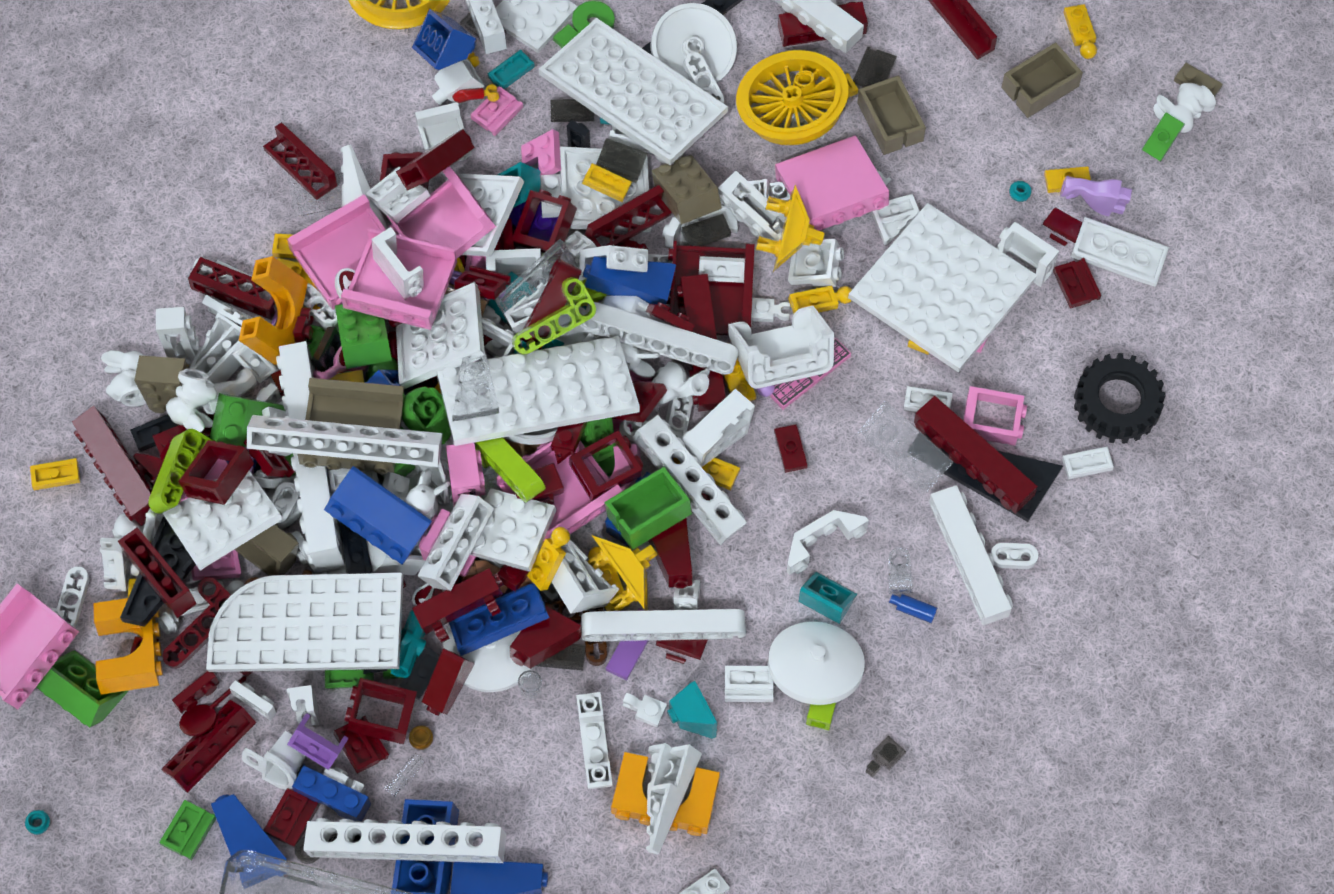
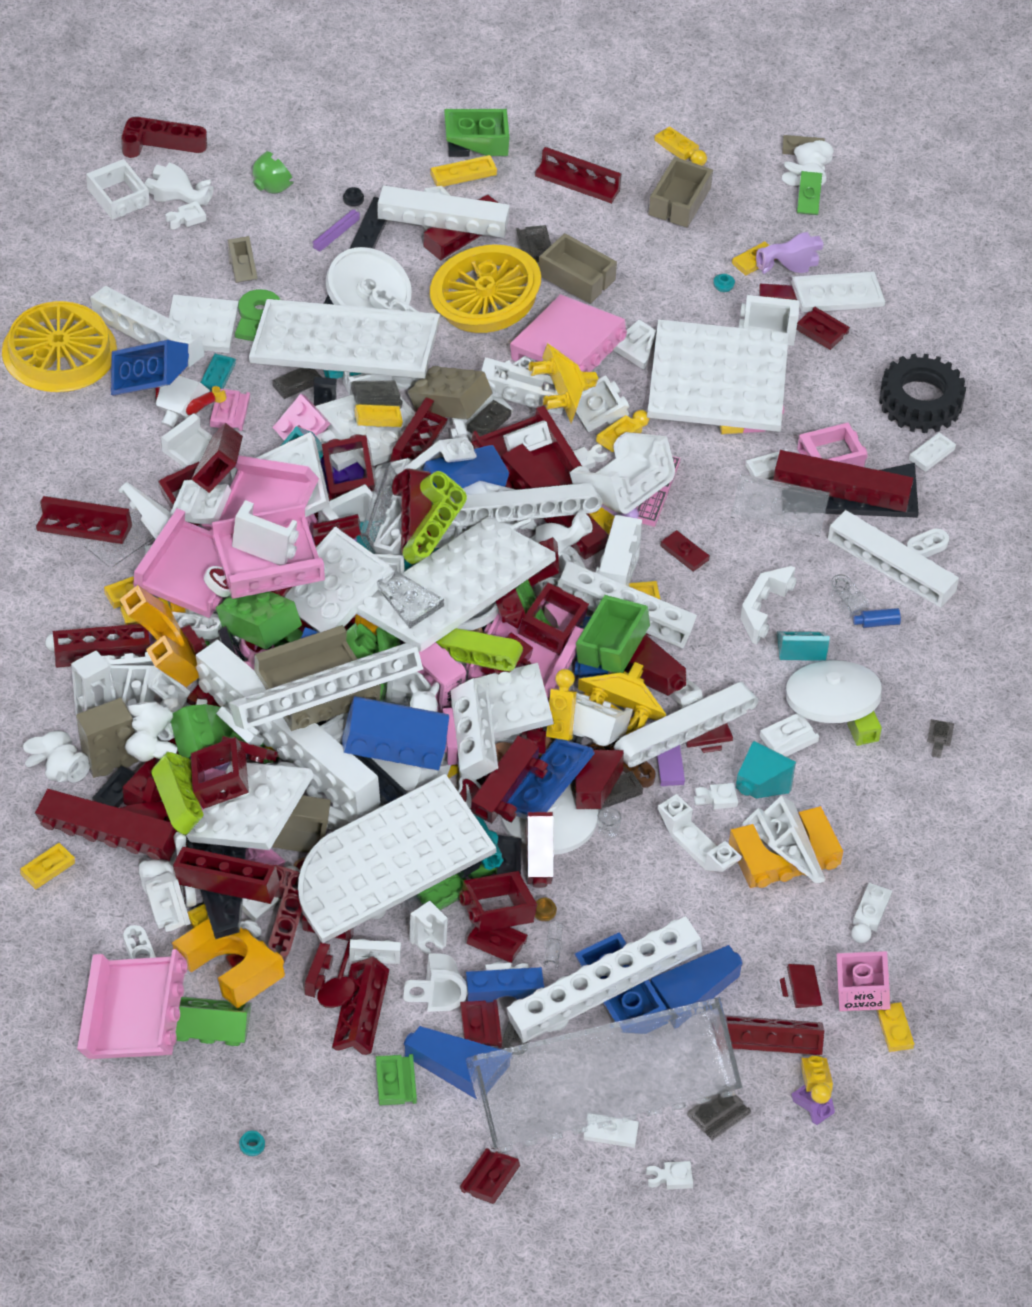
camera: 35 degrees left, 15 degrees down
(314, 745) = (465, 947): medium lavender panel -> none
(662, 312) = (513, 481): dark red plate -> none

